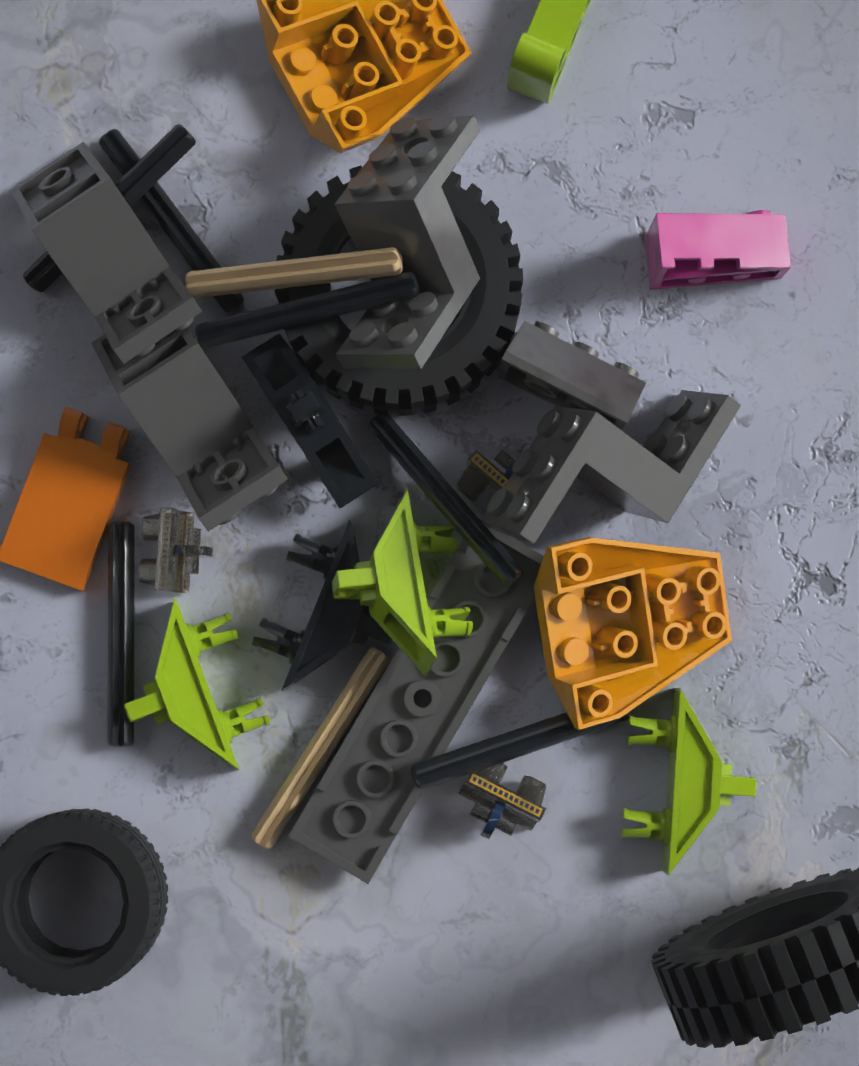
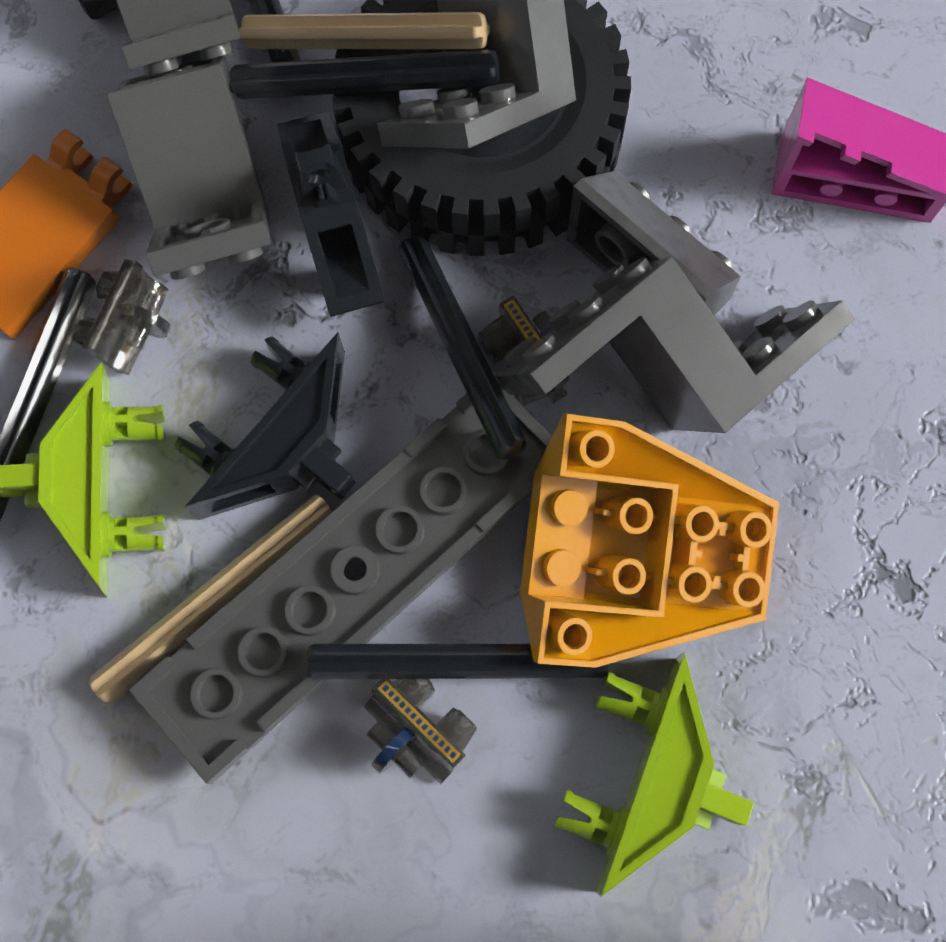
camera: 20 degrees right, 10 degrees down
(396, 590) = (362, 422): lime connector -> none

